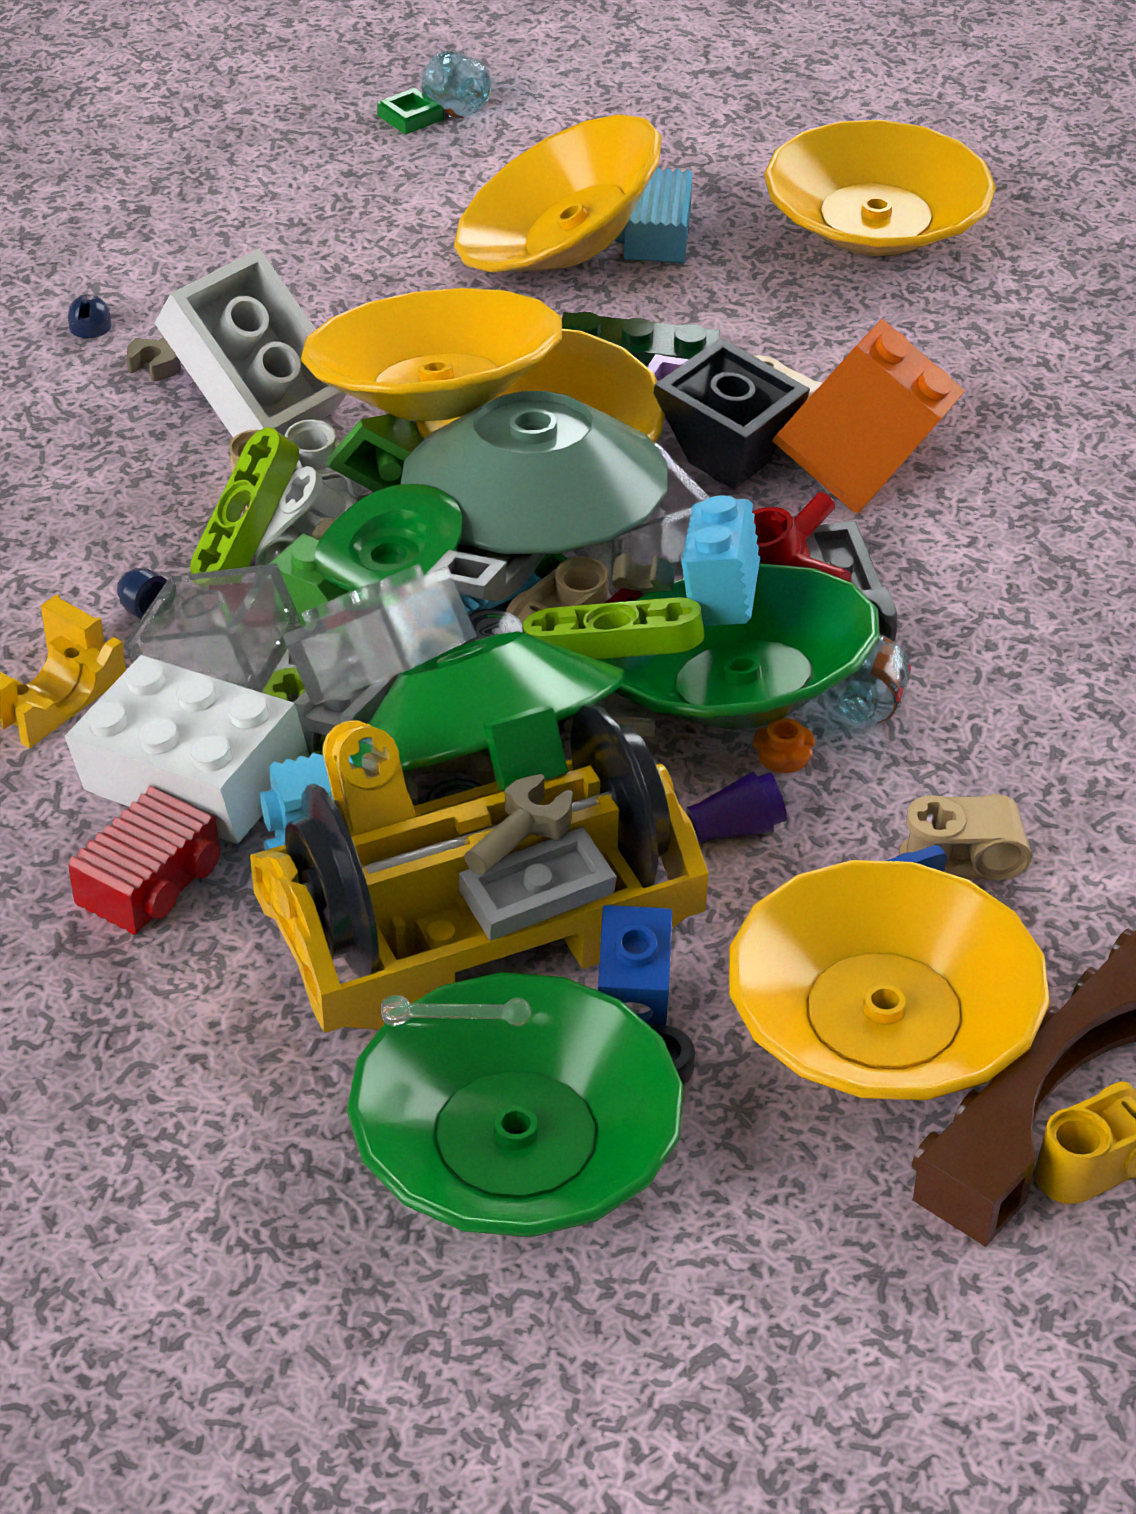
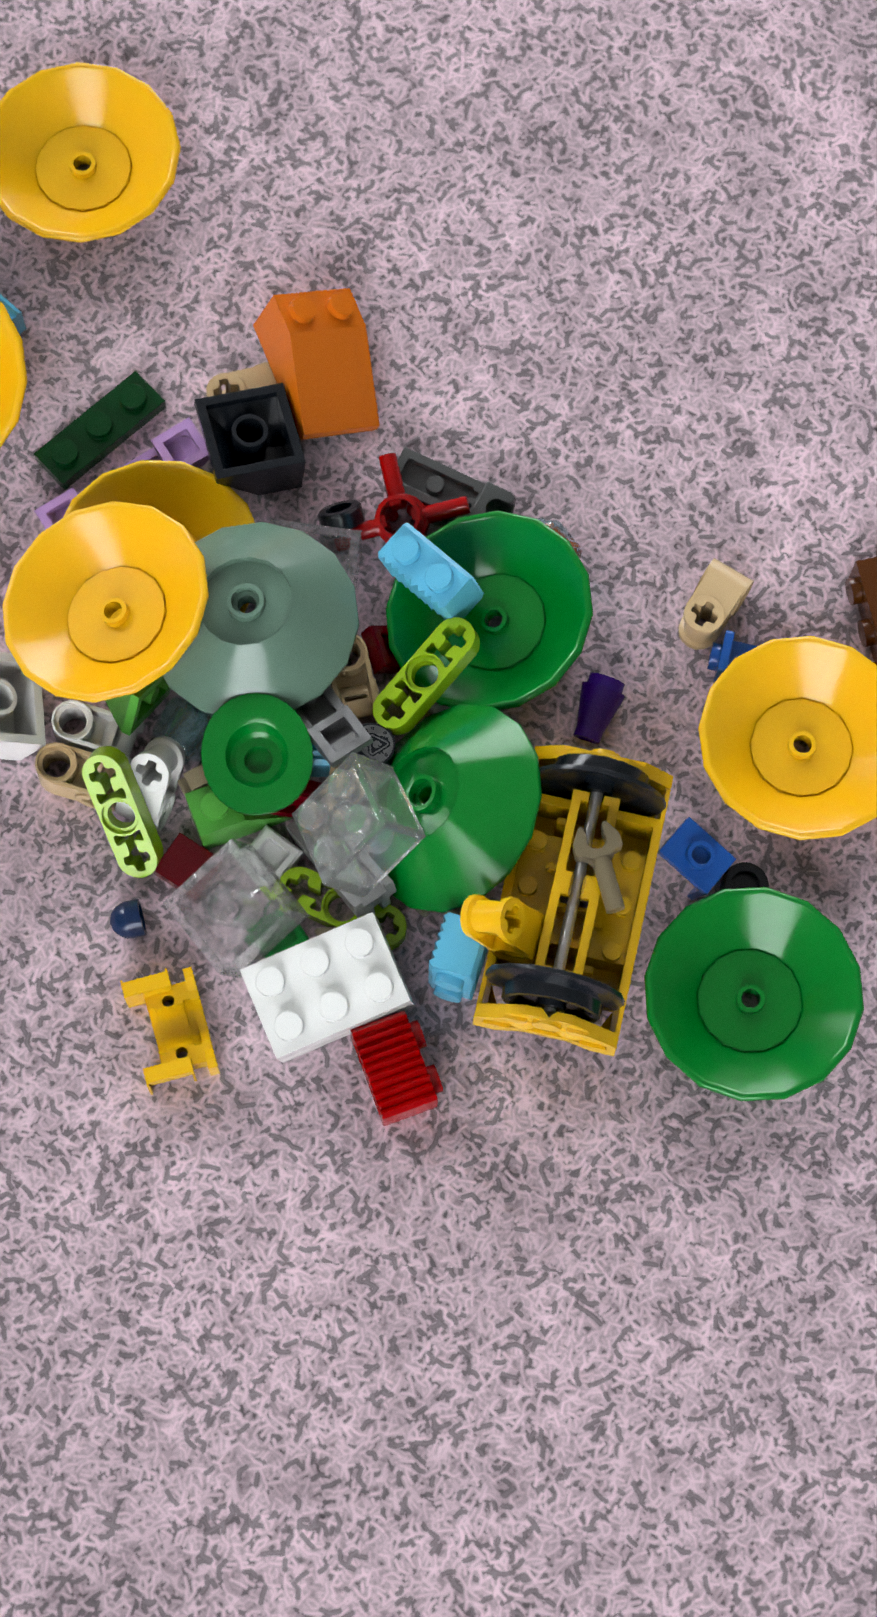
camera: 55 degrees left, 30 degrees up
(398, 1010) = (653, 1013): clear hinge -> none
(525, 746) = (549, 820): green tile -> none
(537, 883) = (638, 877): light grey plate -> none
(643, 577) = (382, 618): dark tan bar -> none

